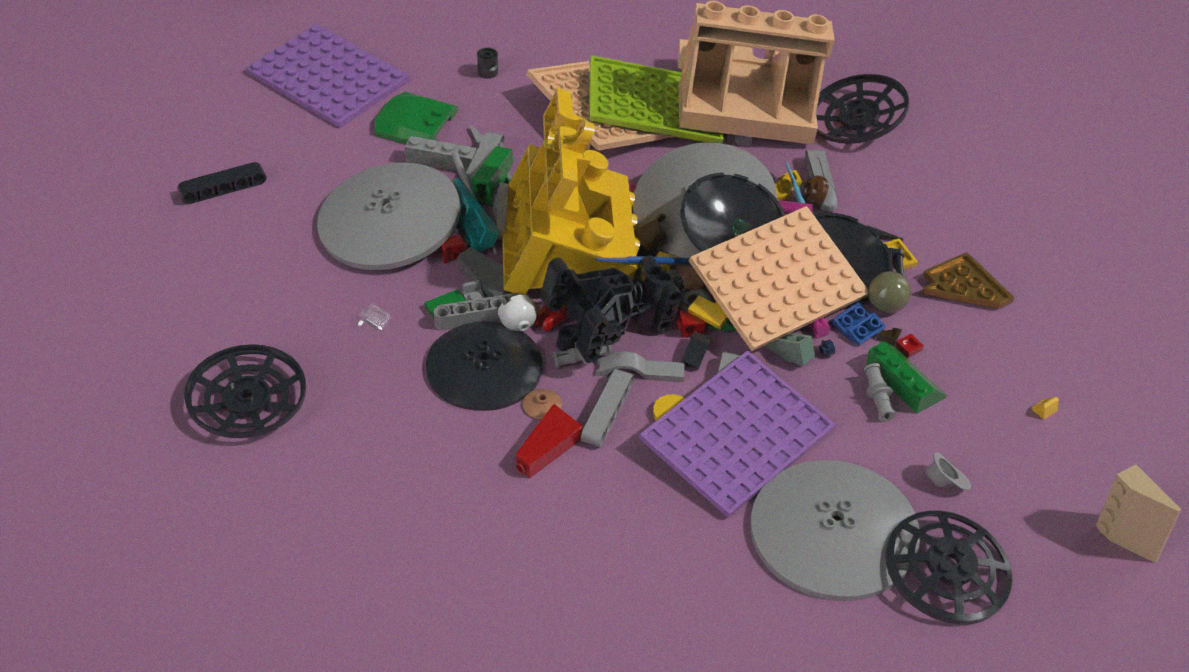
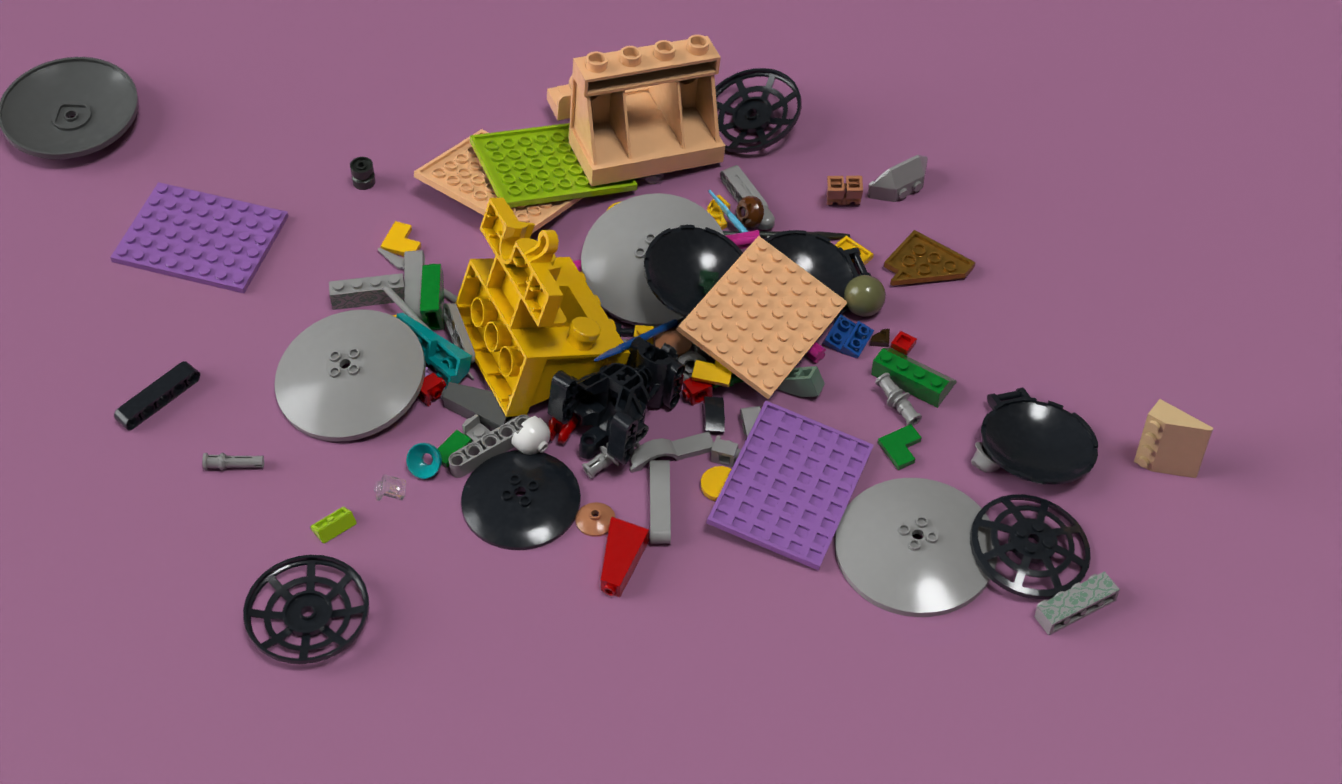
camera: 20 degrees left, 5 degrees up
(247, 251) = (225, 461): none -> light grey pin
(310, 332) = (333, 524): none -> lime slope
(408, 300) = (416, 462): none -> teal piece
(412, 116) = (315, 258): green wedge -> none
(492, 122) = (397, 241): none -> yellow tile
(651, 233) = (621, 309): dark brown hat -> none
(687, 382) = (724, 452): none -> light grey brick
(827, 348) = (831, 370): dark blue plate -> none
(860, 431) = (897, 444): none -> green tile
(913, 200) = (843, 192): none -> nougat hips
(972, 635) = (1076, 602): none -> light grey brick
(974, 205) = (899, 180): none -> light grey wedge
(1001, 471) = (1038, 439): none -> black dish
(1046, 407) = (1046, 362): yellow slope -> none

